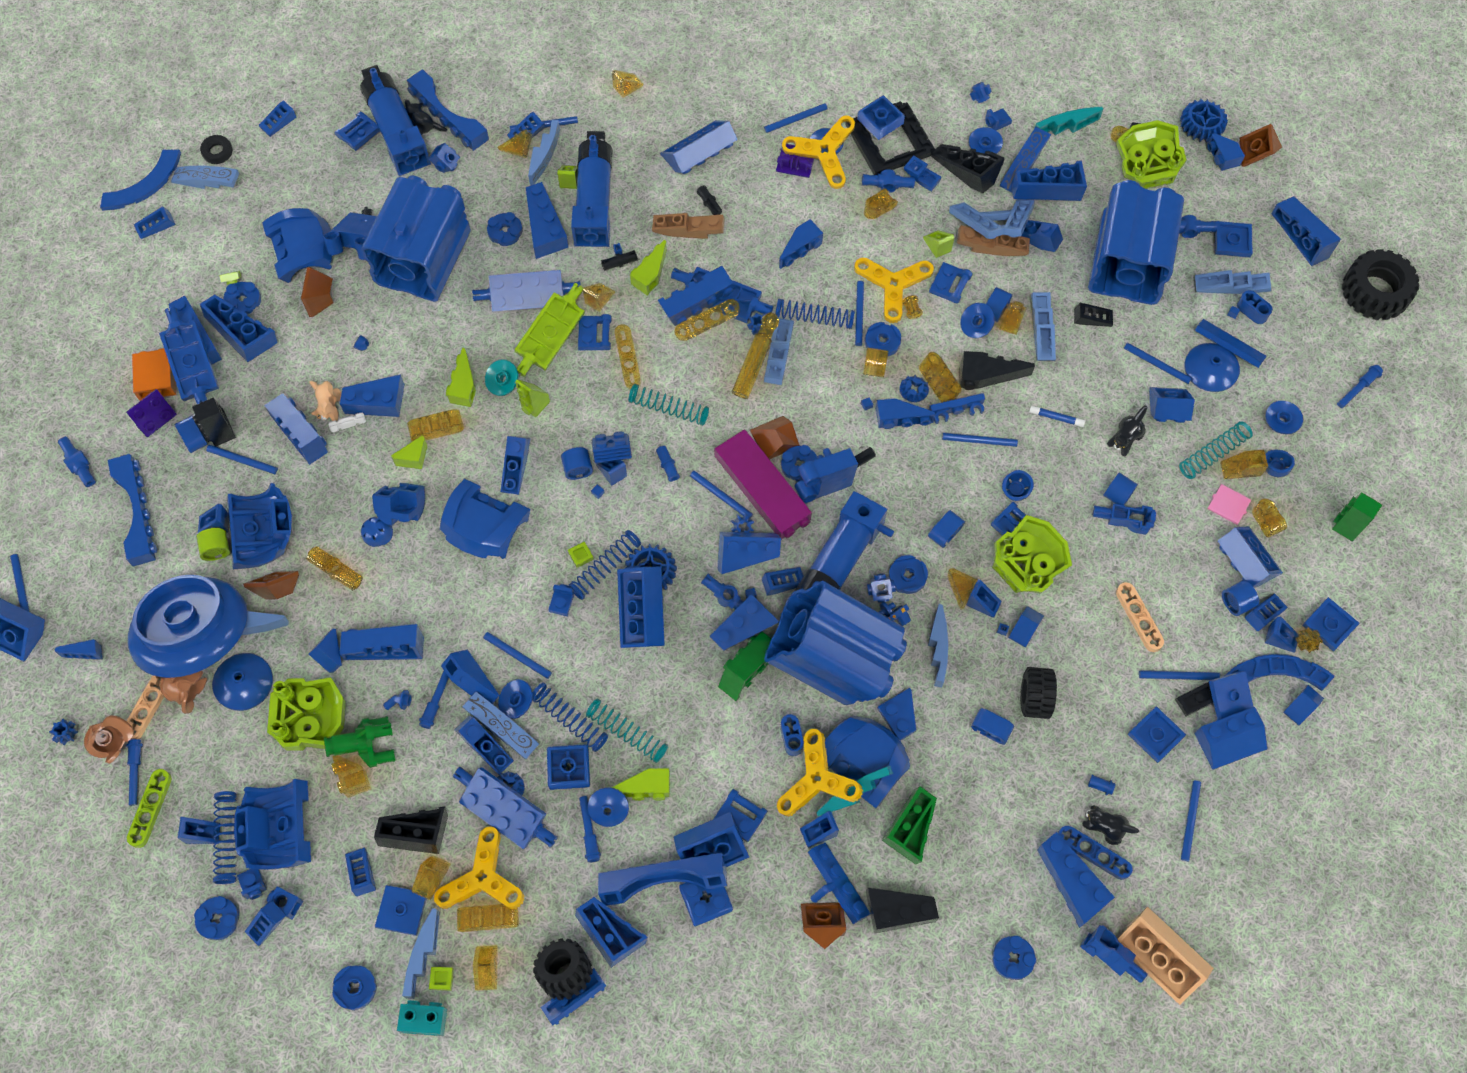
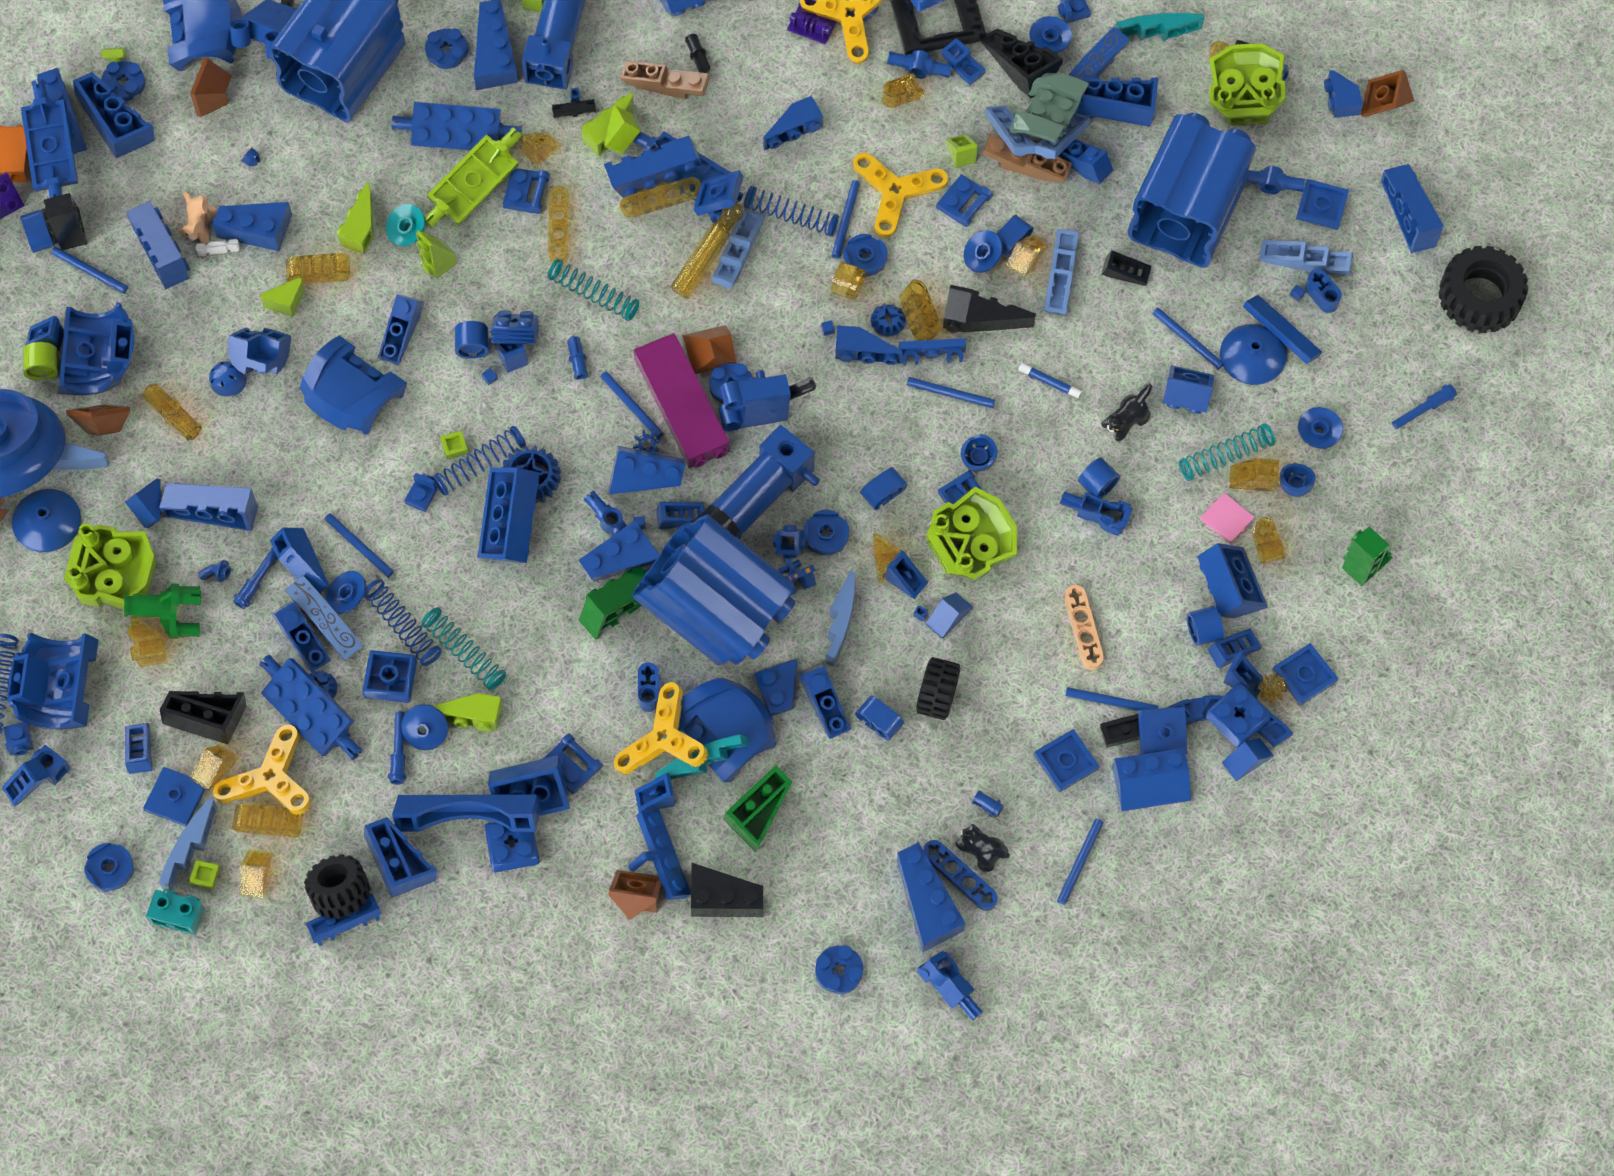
camera: 10 degrees right, 0 degrees up
(663, 271) = (621, 130): none -> lime slope
(756, 308) = (718, 193): none -> blue plate
(912, 307) = (909, 222): clear yellow bush -> none
(942, 718) = (824, 700): none -> blue slope
(1006, 195) = (1052, 107): none -> sand green piece
(1165, 956) = (1007, 996): light nougat slope -> none
(1203, 119) = (1316, 44): blue gear -> none
(1278, 673) = (1241, 728): none -> blue brick

